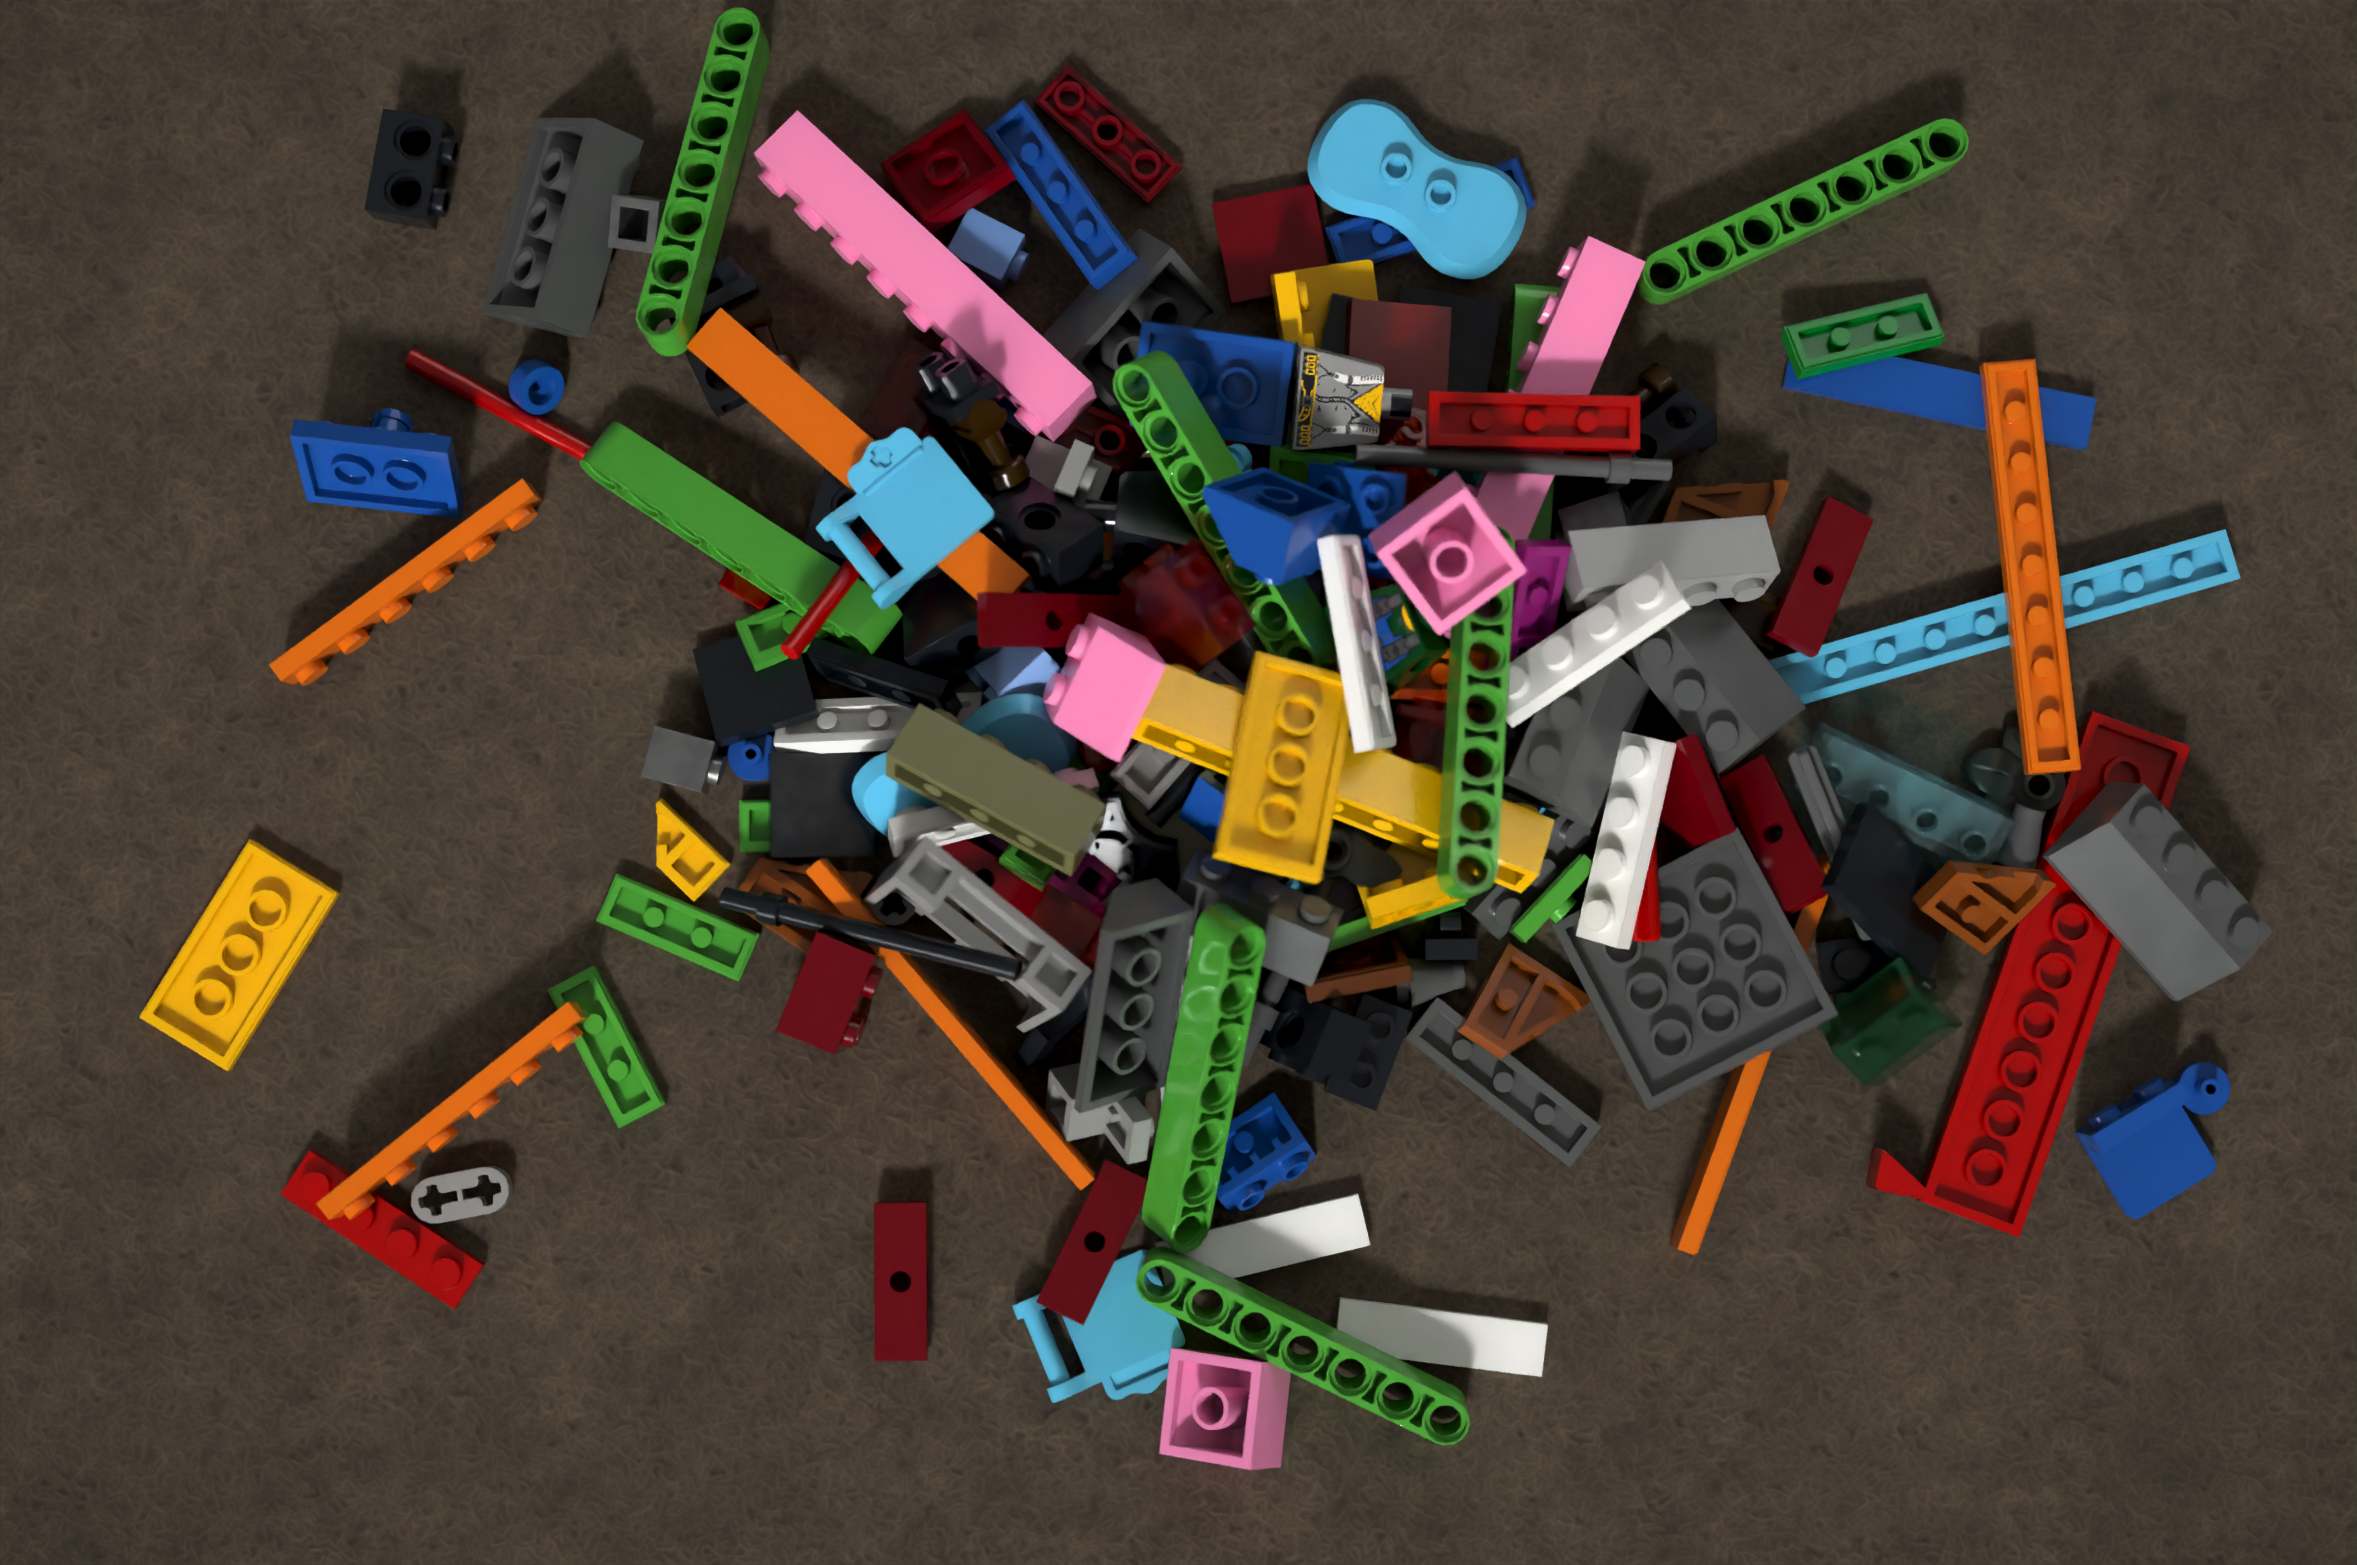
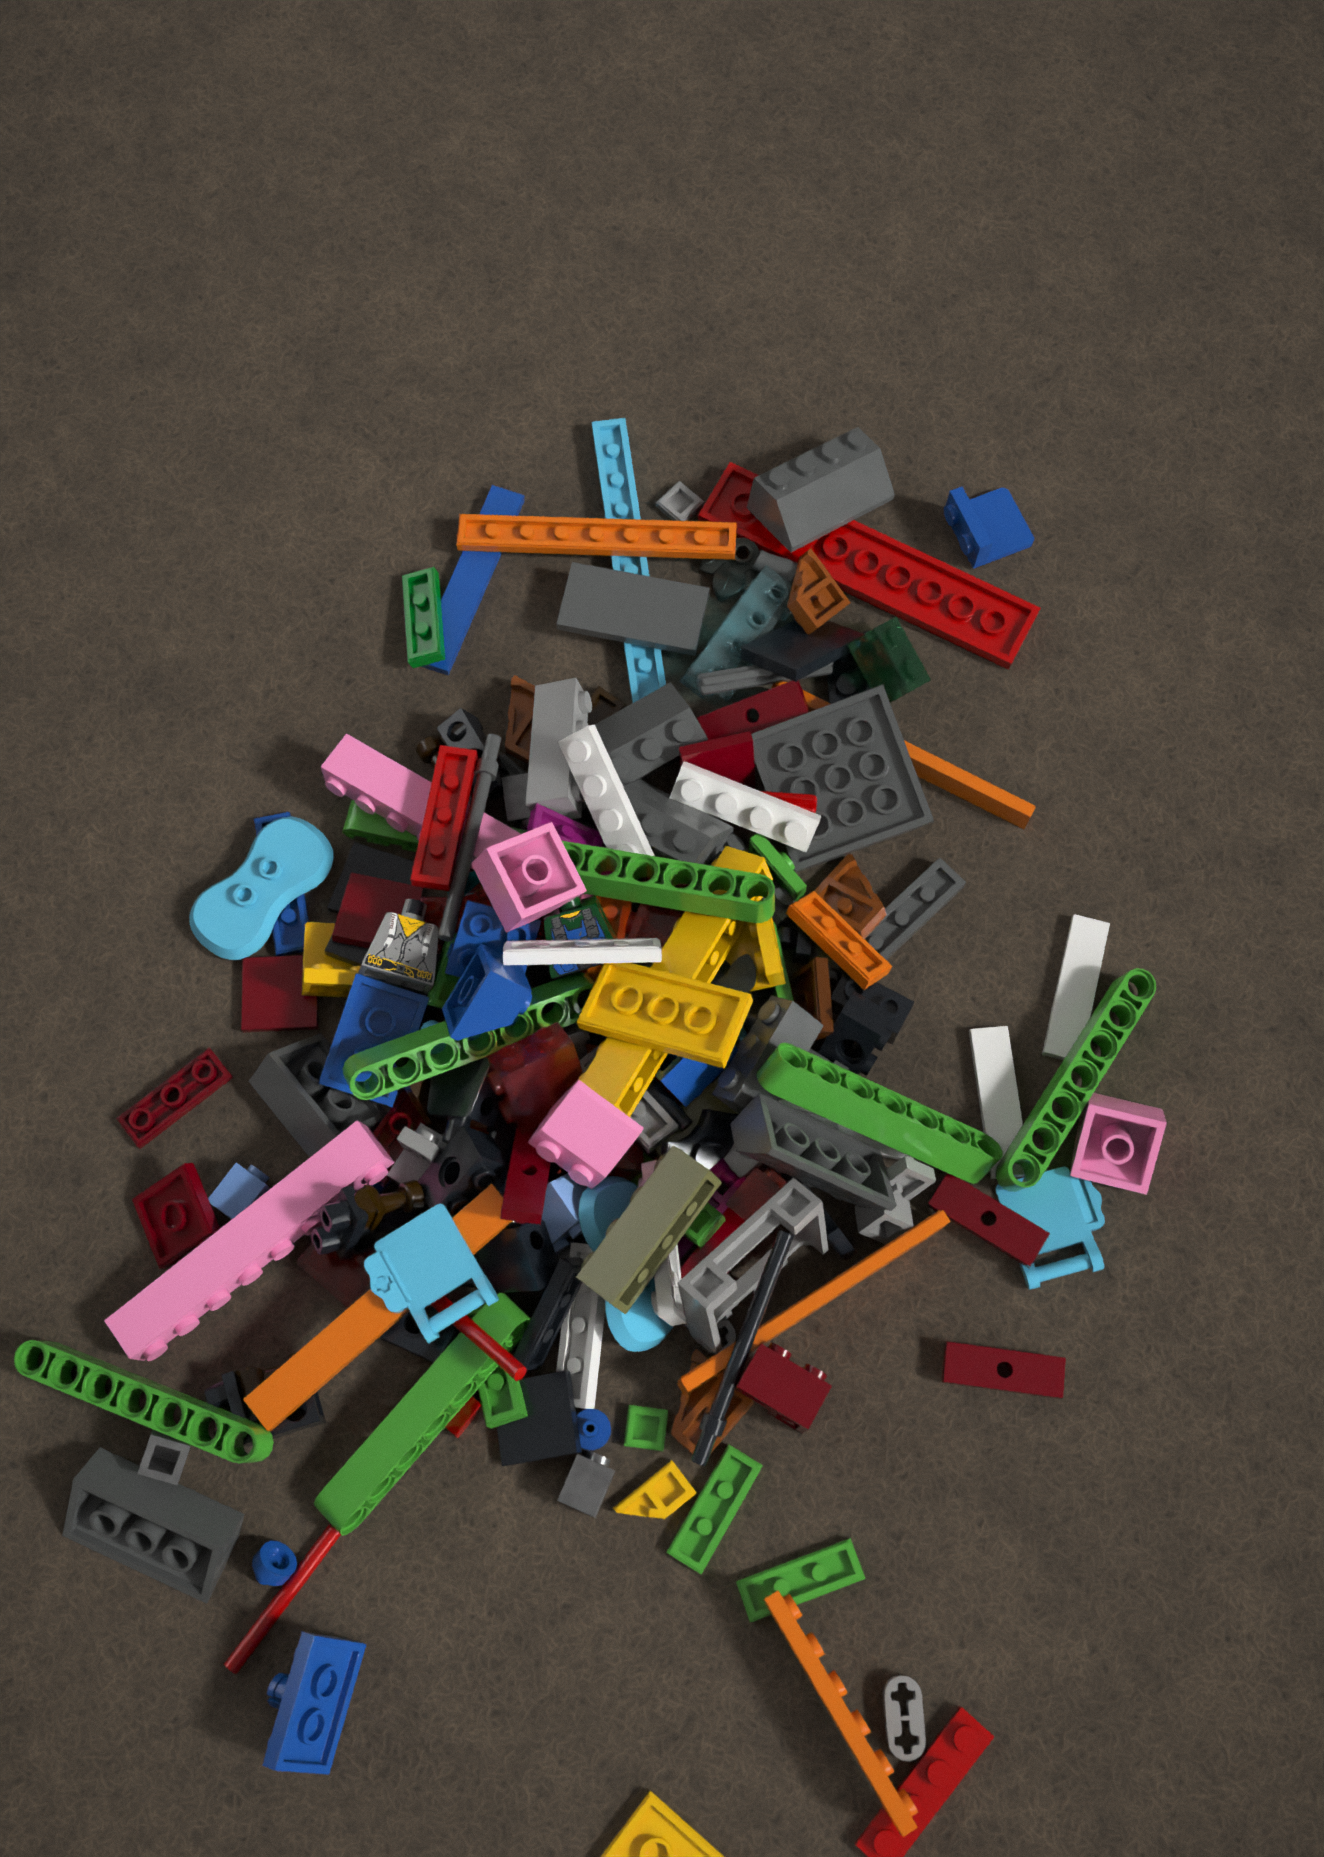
camera: 80 degrees left, 15 degrees down
(391, 597) = (420, 1709): orange plate -> none
(396, 170) = (78, 1654): black brick -> none
(815, 807) = (637, 1383): black tile -> none
(1060, 195) = (213, 1132): blue tile -> none
(1260, 1153) = (932, 1085): blue bracket -> none
(1448, 995) = (839, 940): none -> orange tile
(1819, 195) = (328, 628): bright green beam -> none
(1831, 553) = (583, 663): dark red tile -> none
(1889, 1176) = (991, 680): red slope -> none
(1919, 637) = (633, 608): none -> dark grey tile
(2112, 681) = (679, 503): none -> light grey tile
(2206, 1085) = (949, 482): blue tile -> none

